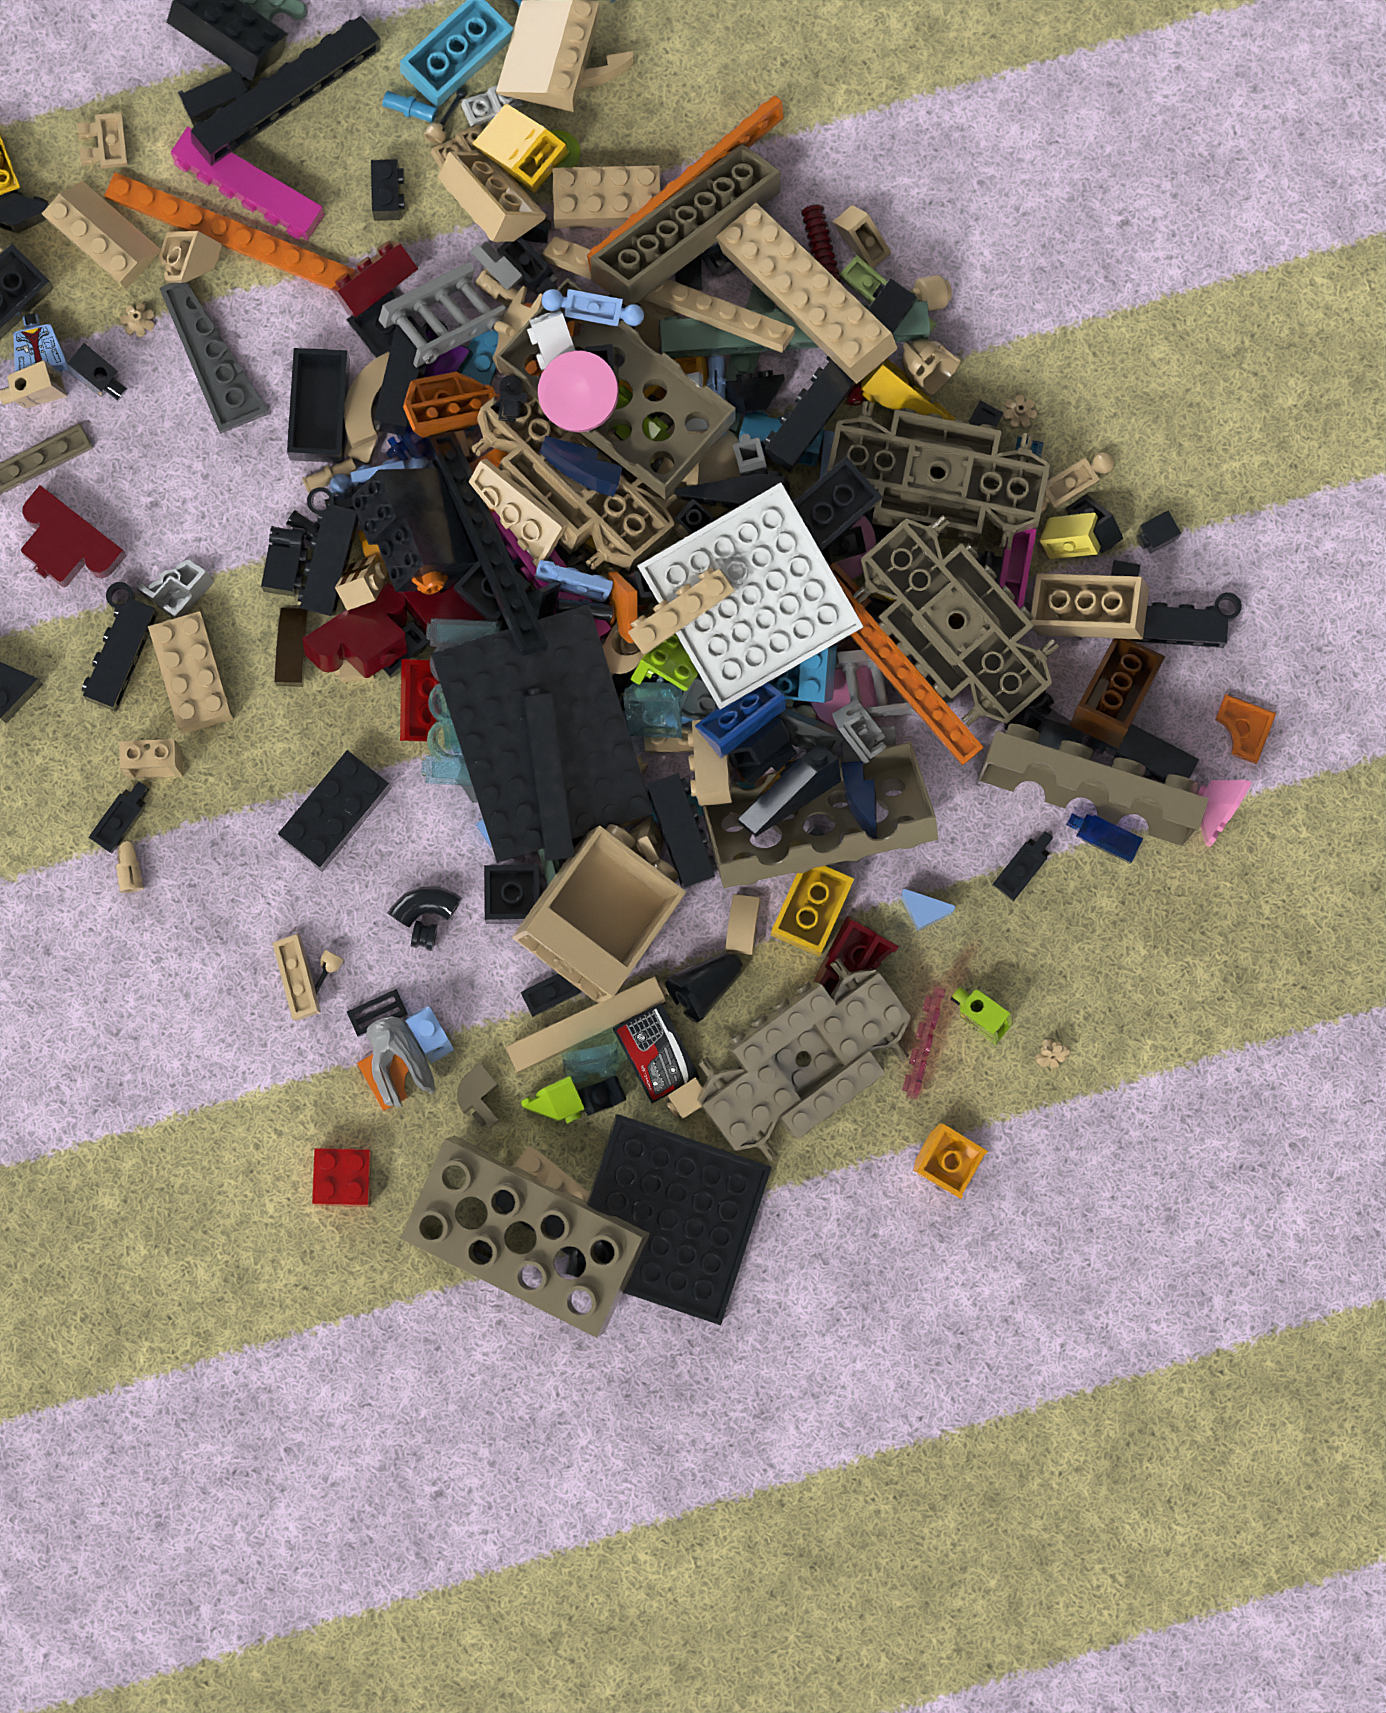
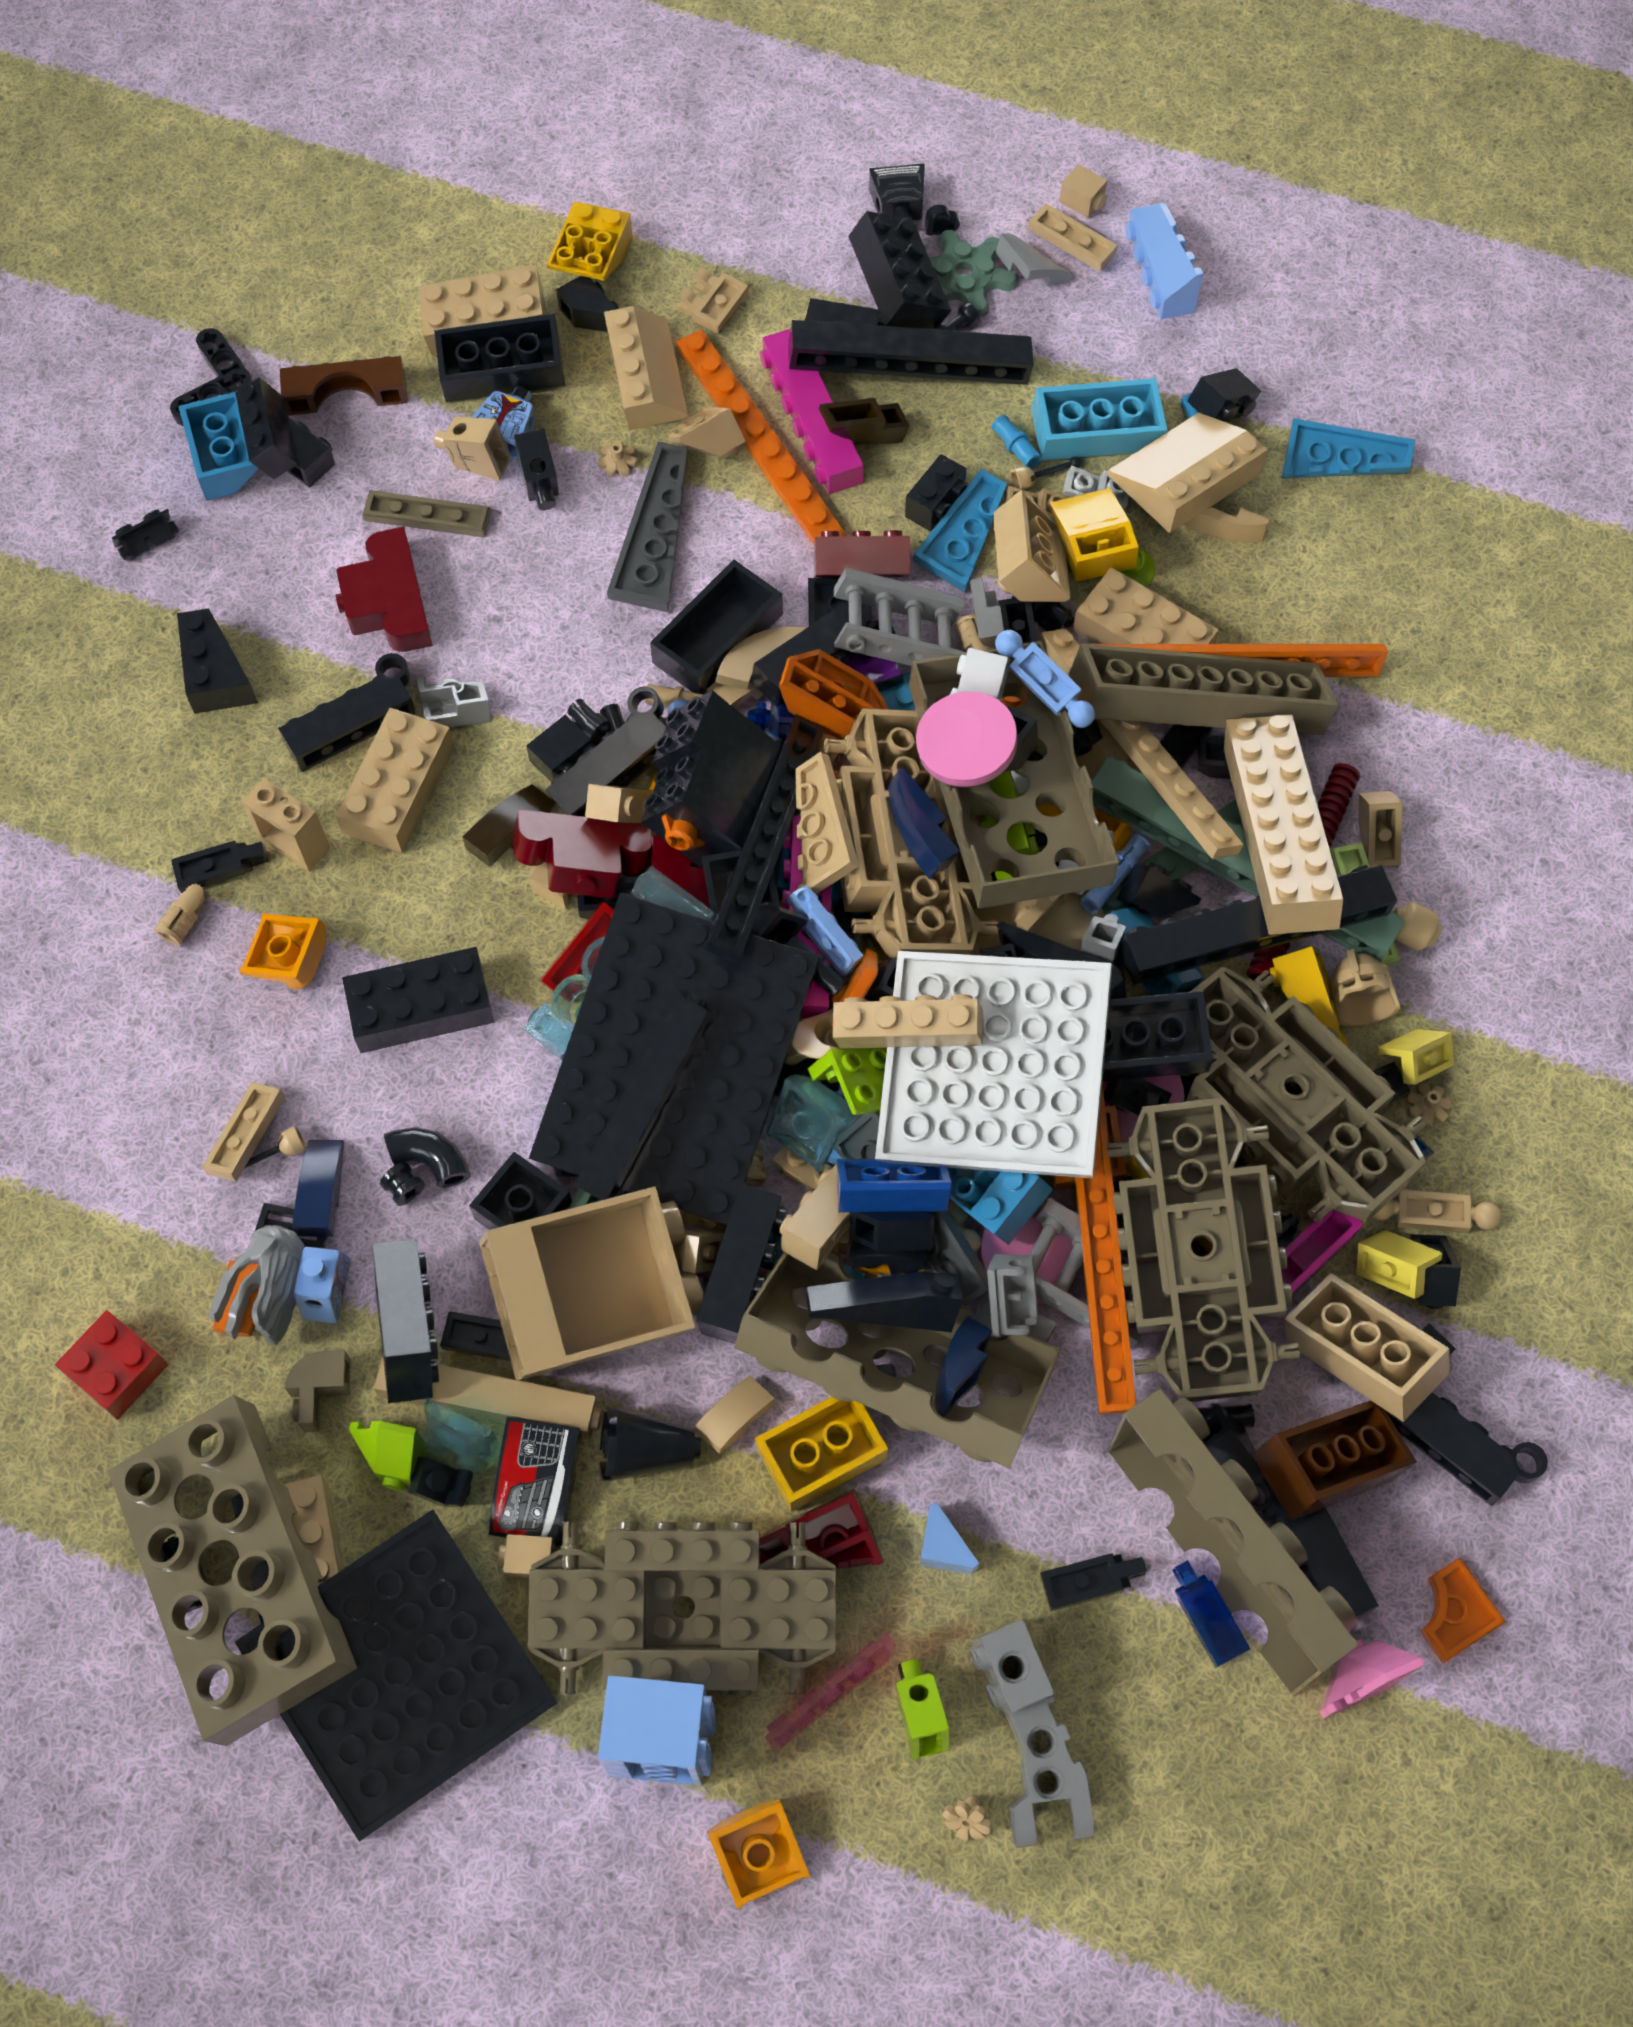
camera: 40 degrees right, 15 degrees down
(218, 841) = (286, 950): none -> light orange slope
(294, 46) = (967, 316): none -> black piece
(297, 170) = (865, 421): none -> dark brown slope
(373, 976) = (318, 1189): none -> dark blue slope
(427, 215) = (960, 535): none -> dark azure wing
(506, 1018) = (405, 1320): none -> brick
(510, 398) = (895, 713): black hips -> none
(849, 1137) = (657, 1730): none -> light blue brick
(993, 383) = (1421, 1054): none -> light yellow panel
(1038, 964) = (1025, 1704): none -> light grey brick
(1158, 532) = (1500, 1328): black brick -> none

